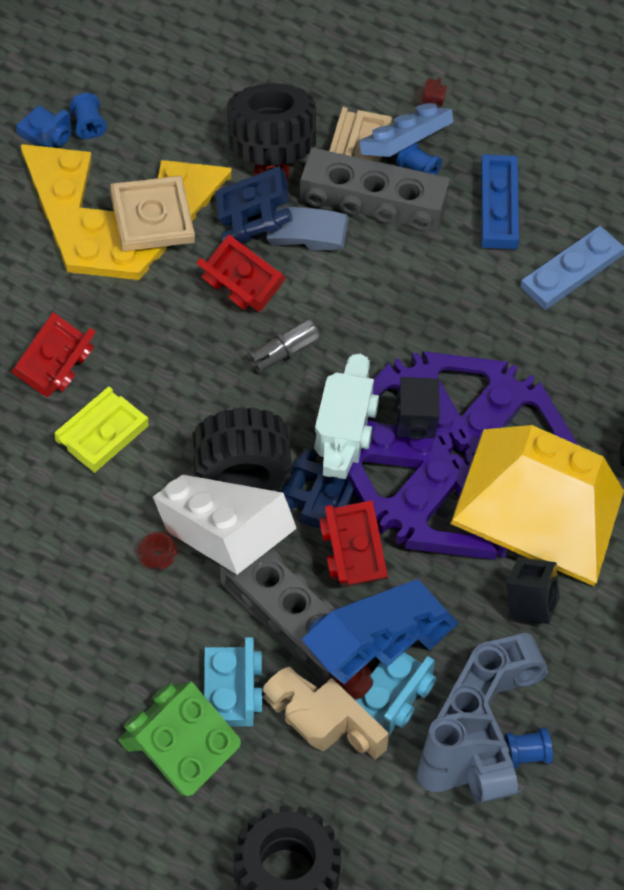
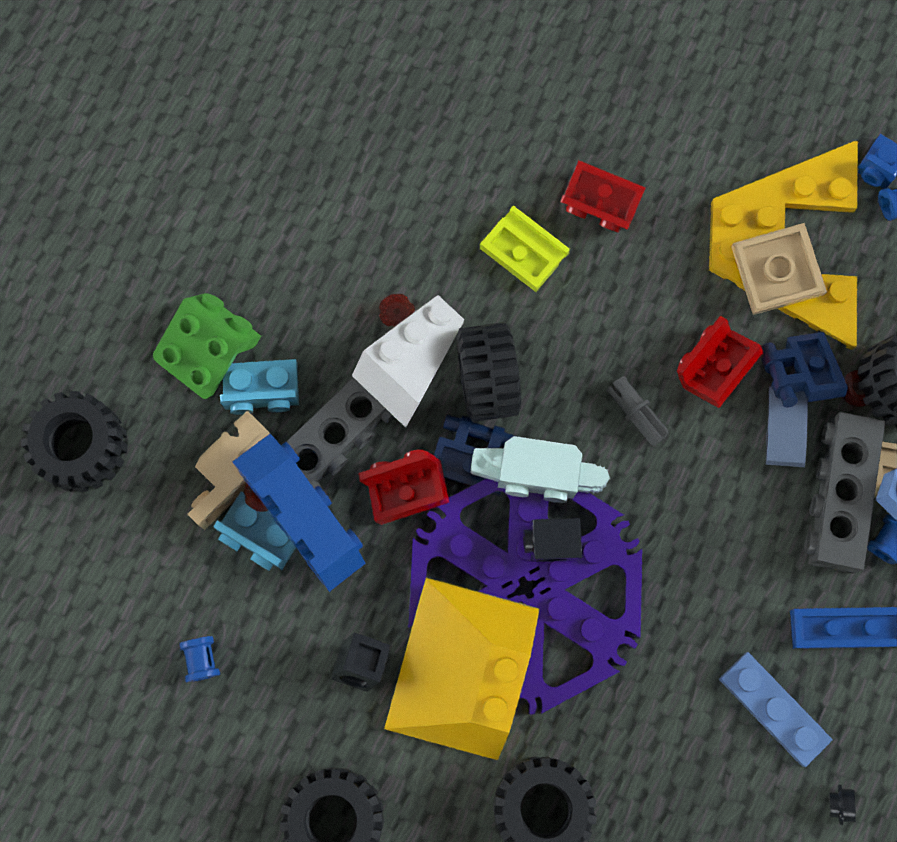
camera: 90 degrees right, 20 degrees up
(470, 745) = (196, 603): sand blue connector -> none

